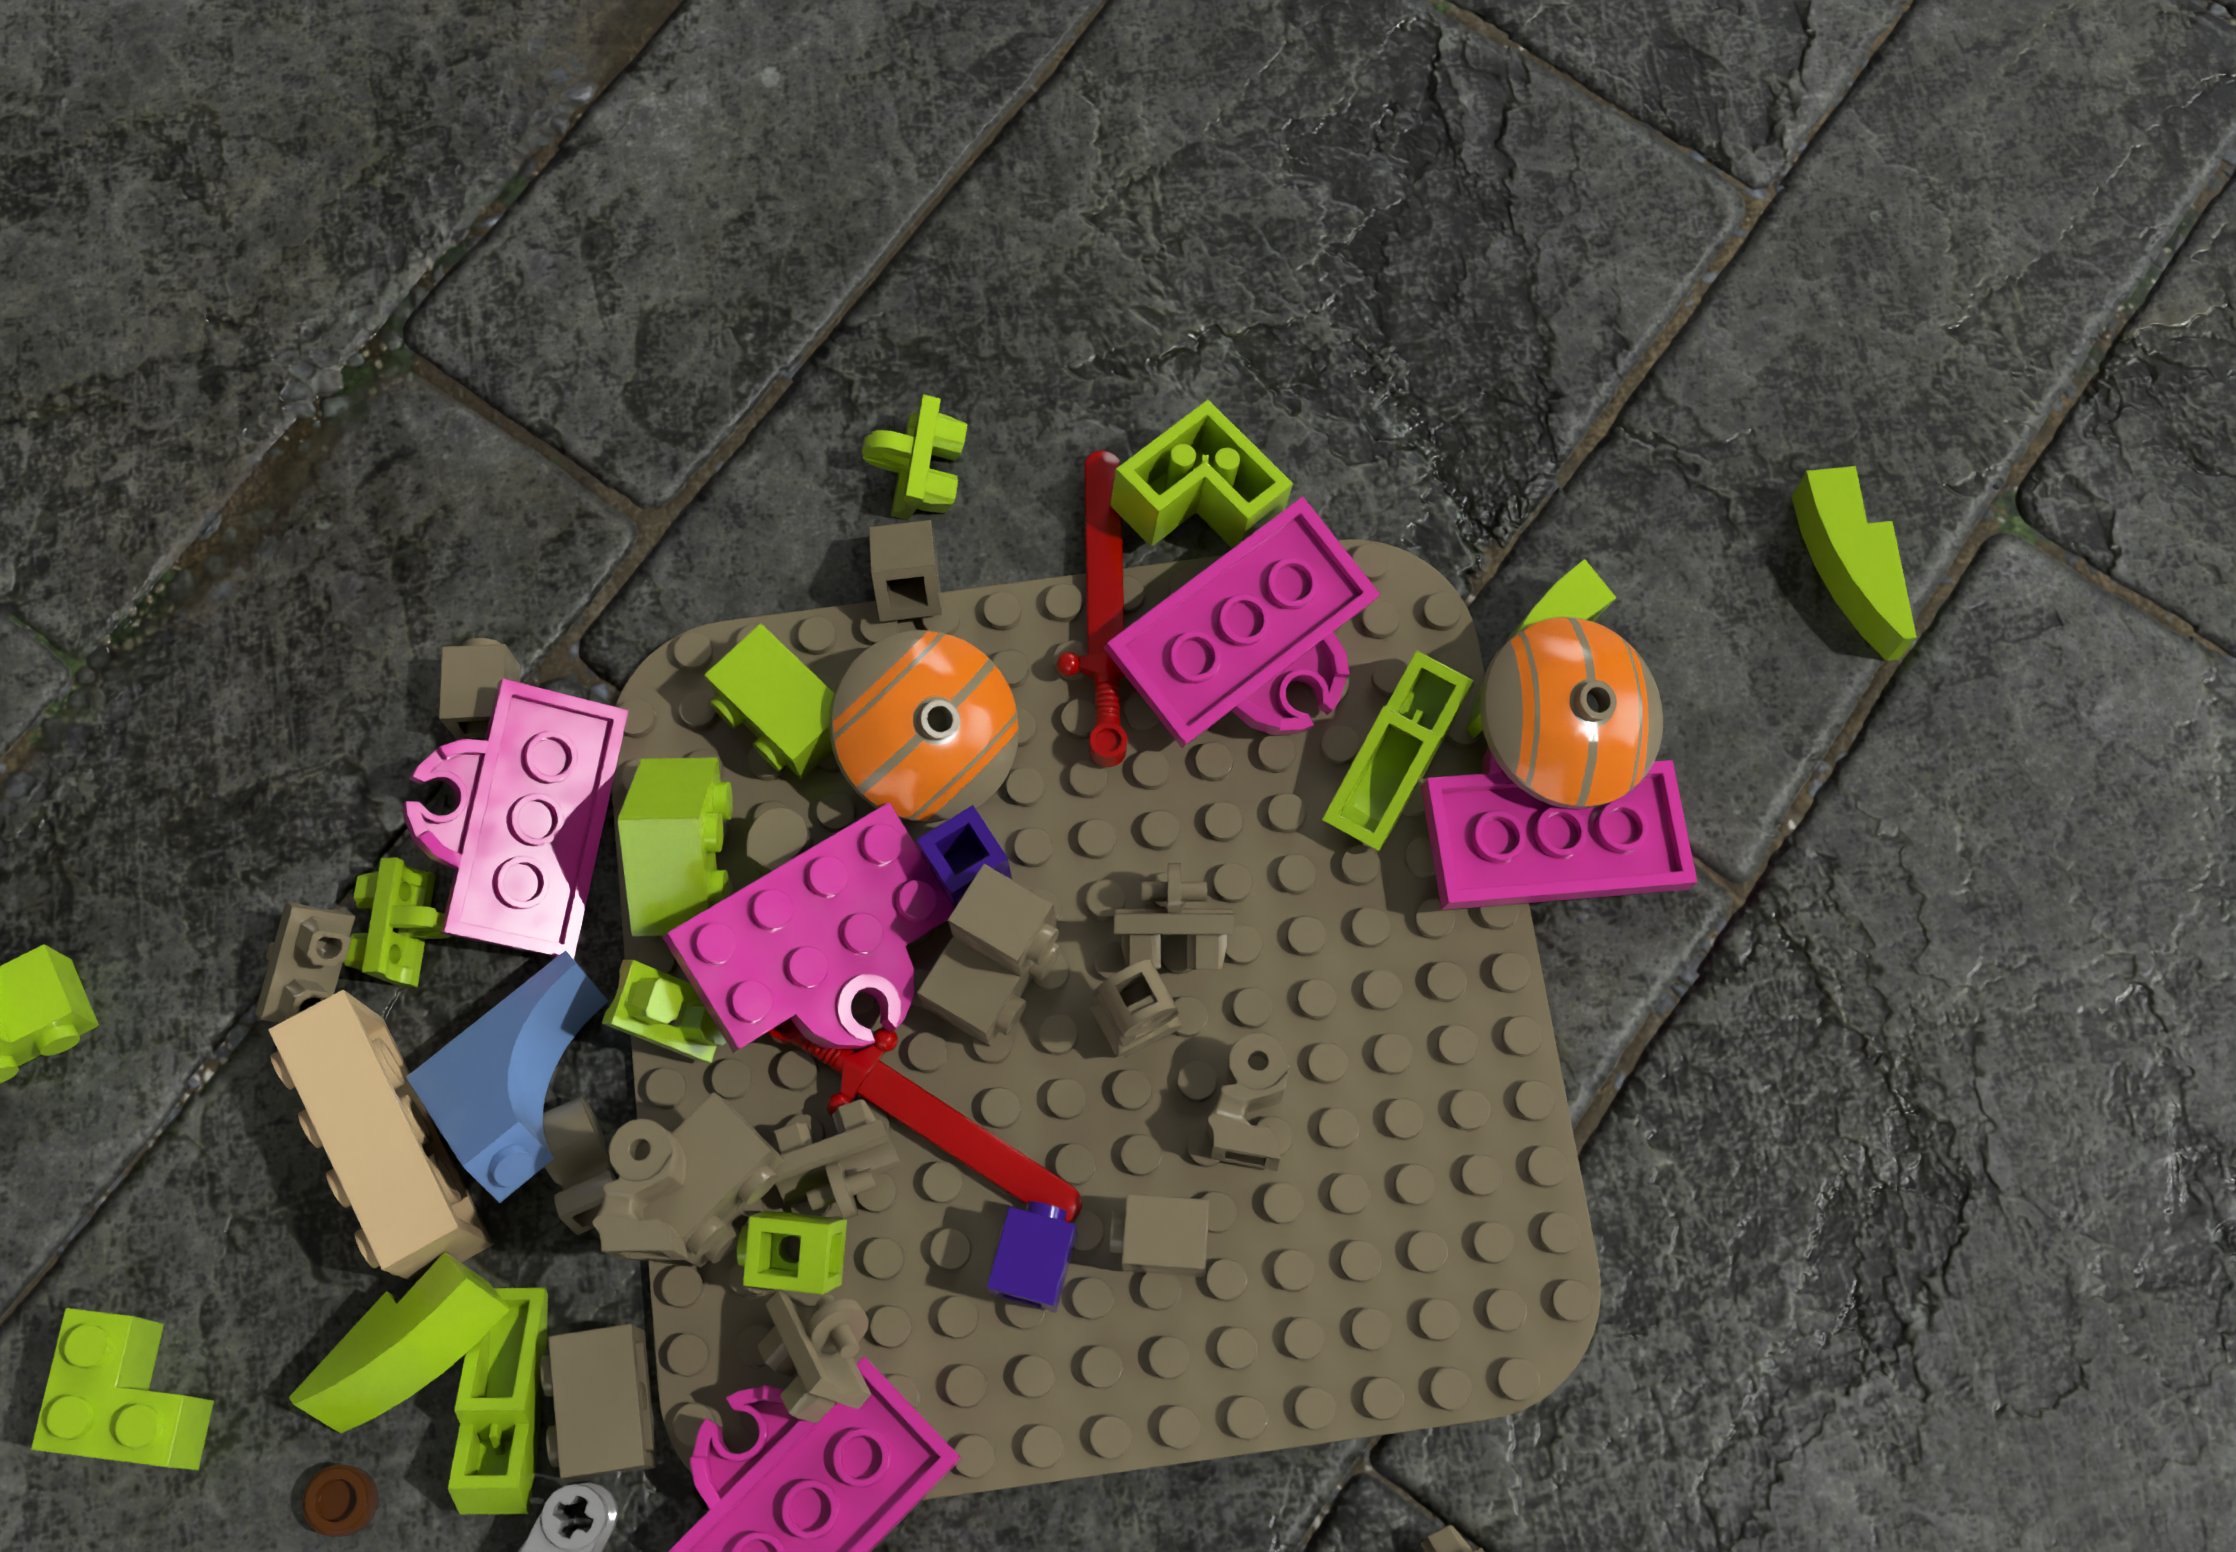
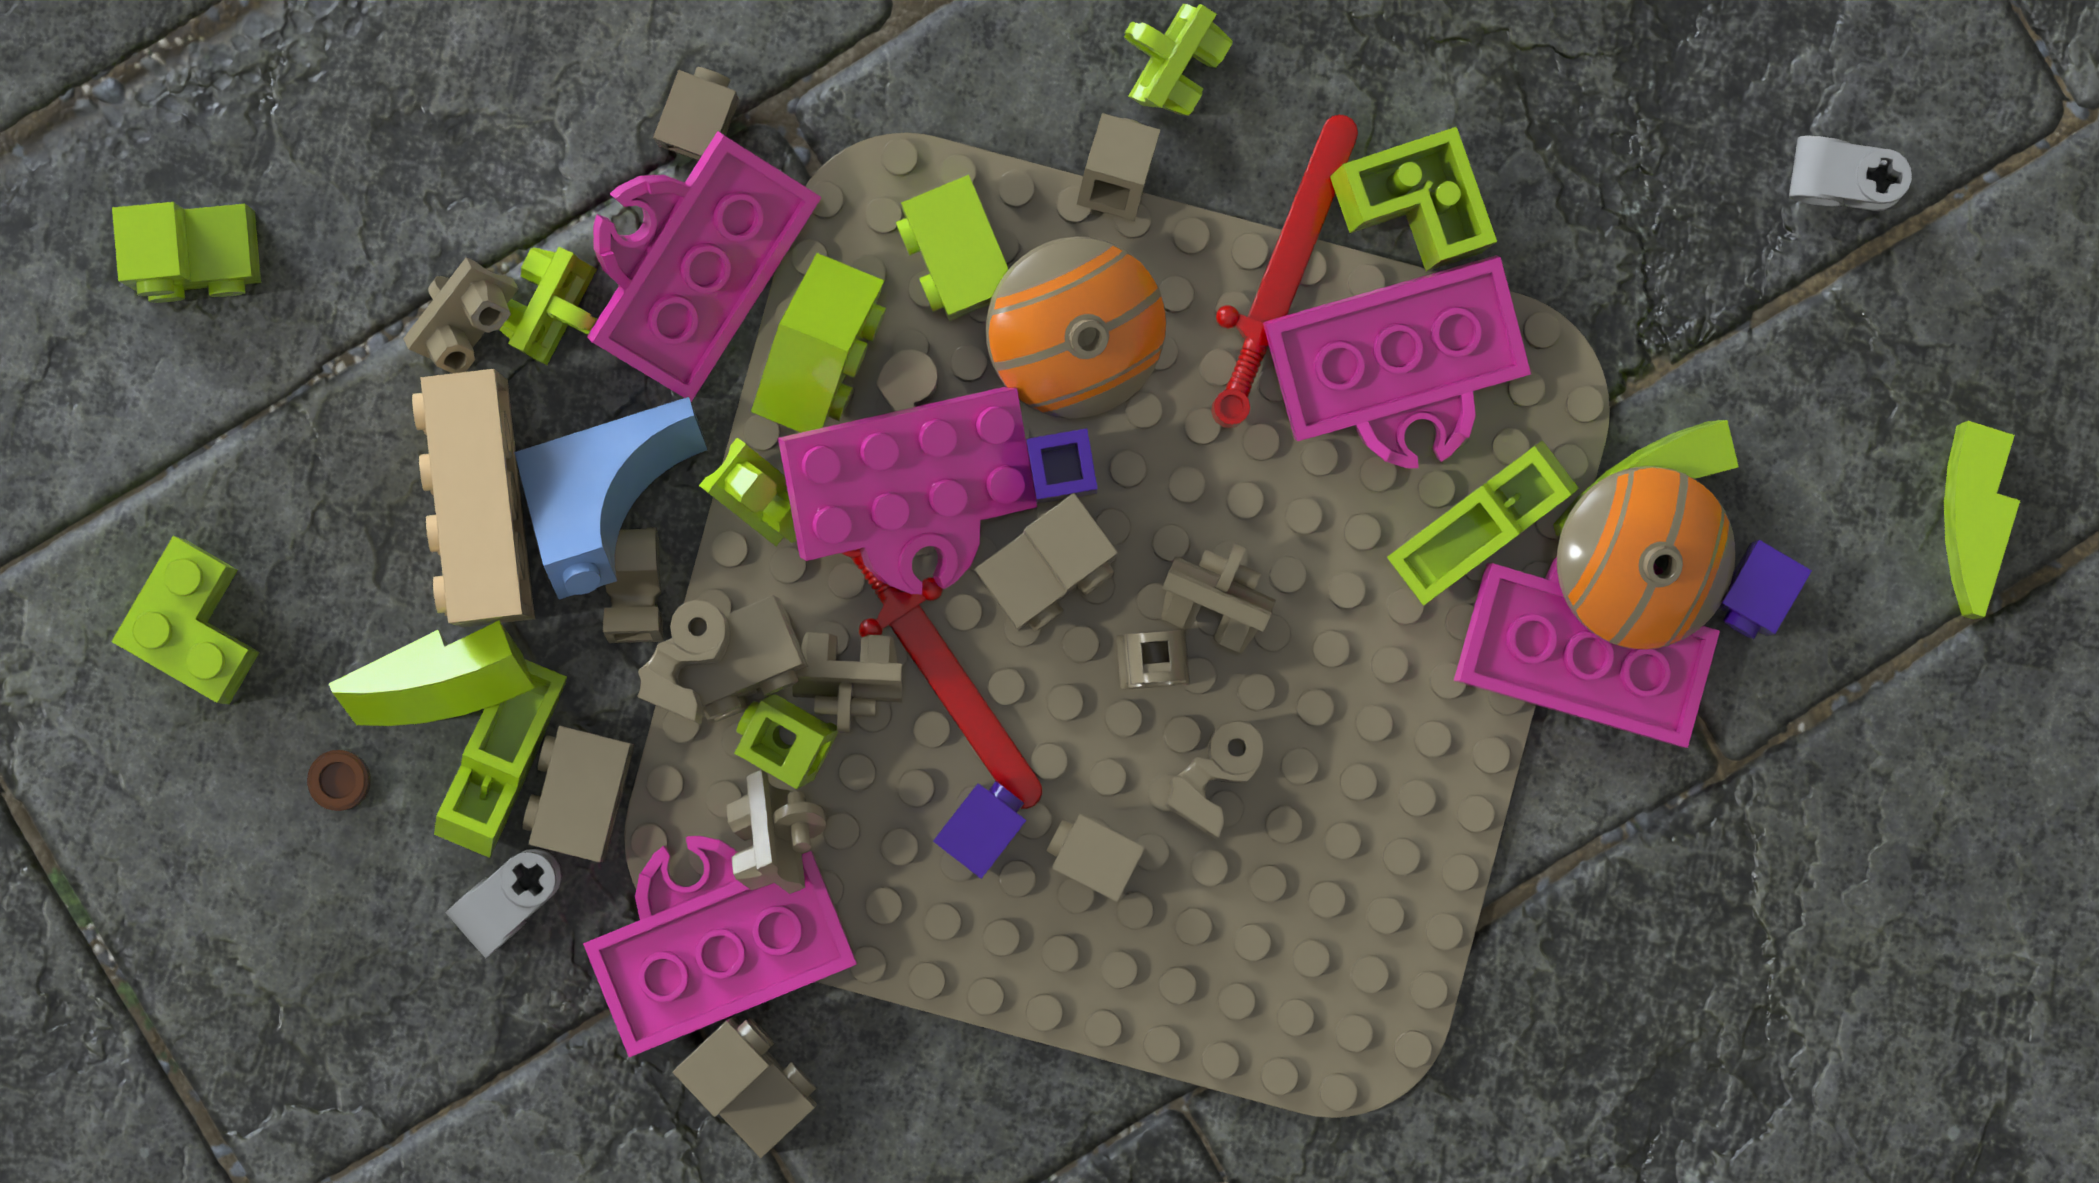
camera: 20 degrees right, 15 degrees up
(1582, 316) = (1837, 172): none -> light grey piece
(1695, 705) = (1762, 590): none -> dark purple brick

